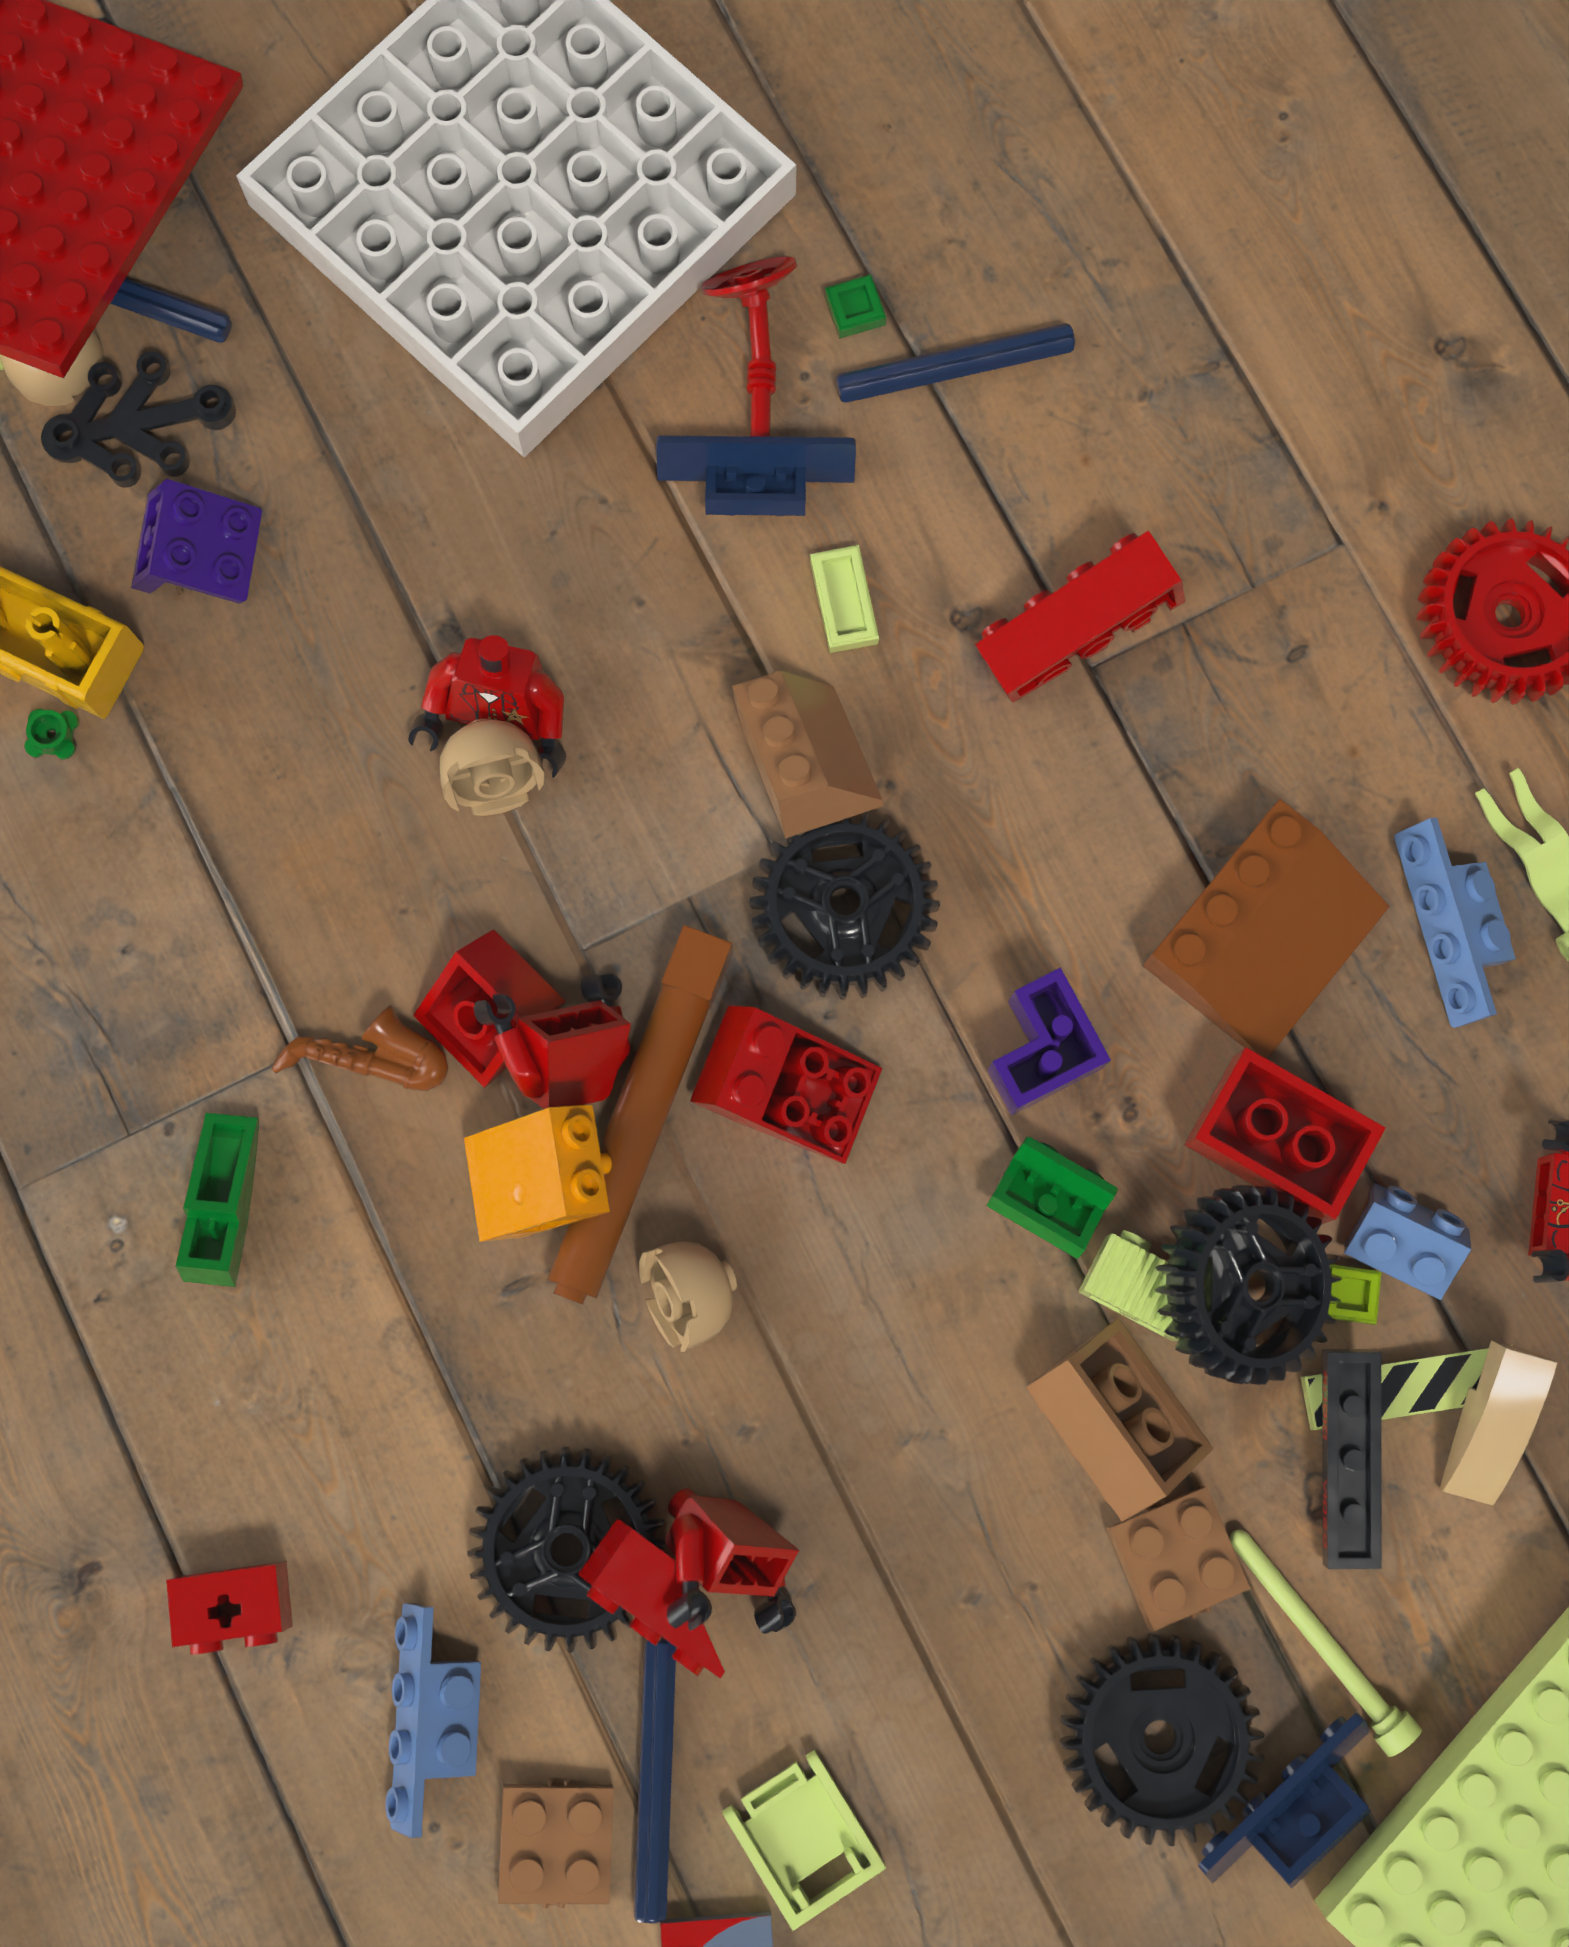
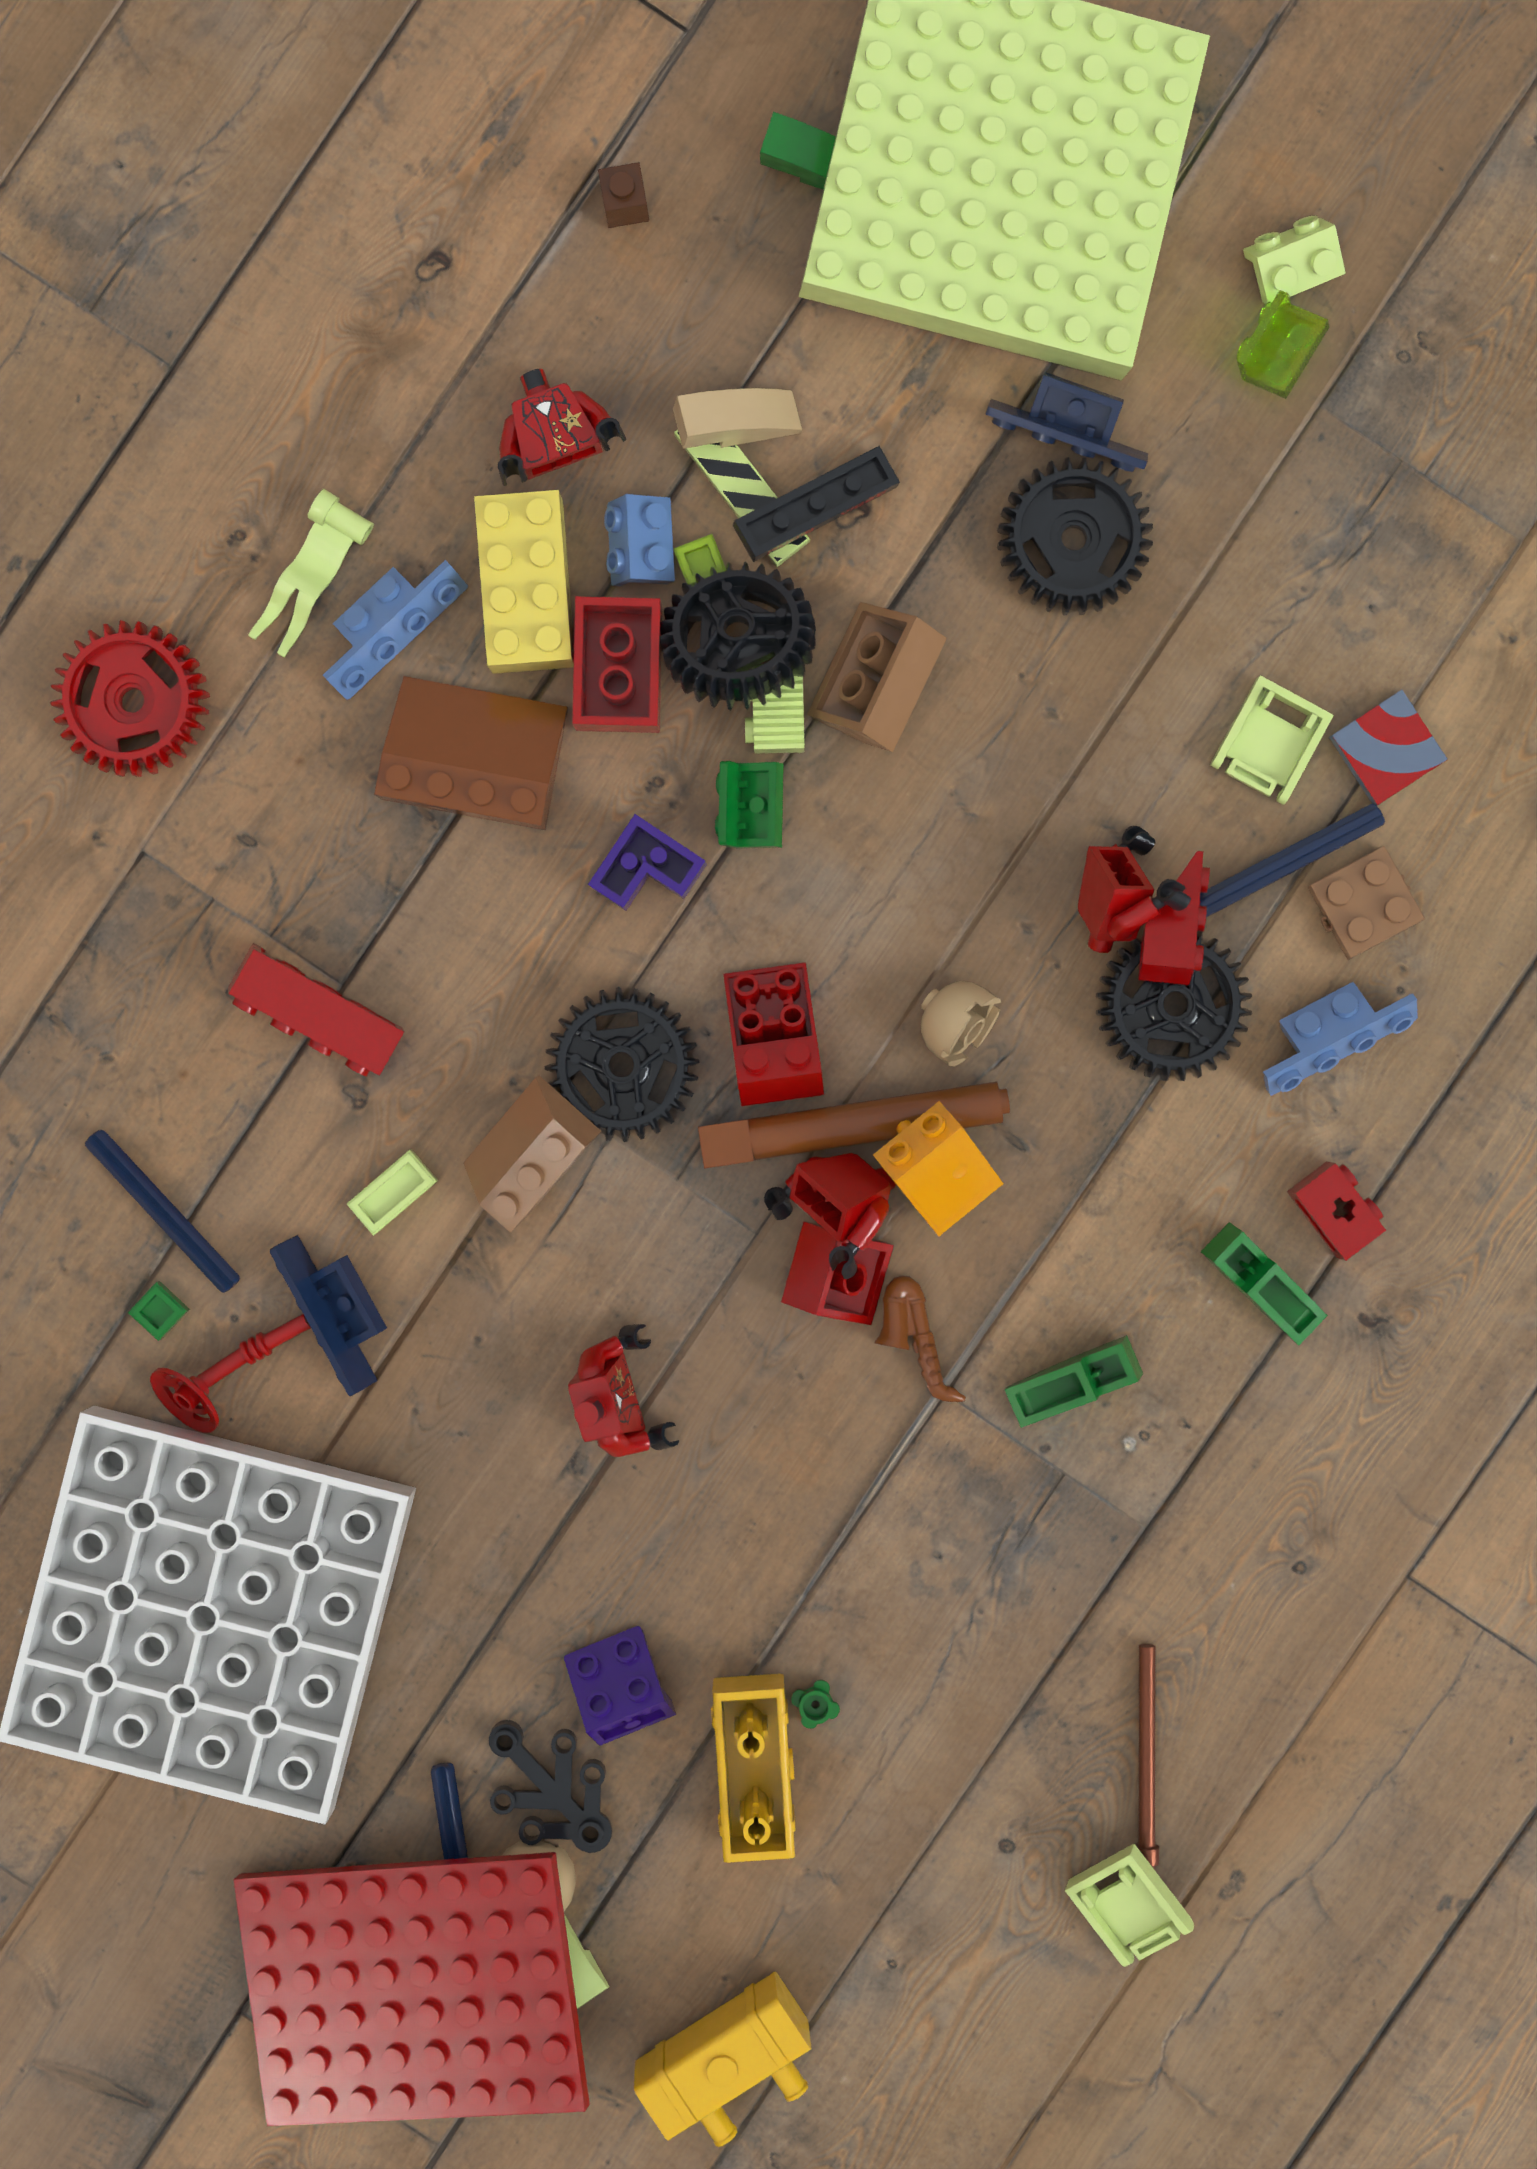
camera: 115 degrees left, 10 degrees up
(198, 1473) = (1264, 1283): none -> green slope
(489, 767) = (665, 1374): tan cylinder -> none
(1178, 1558) = (948, 587): medium nougat plate -> none
(1393, 1728) = (980, 384): yellowish green piece -> none
(1431, 1087) = (524, 581): none -> light yellow brick

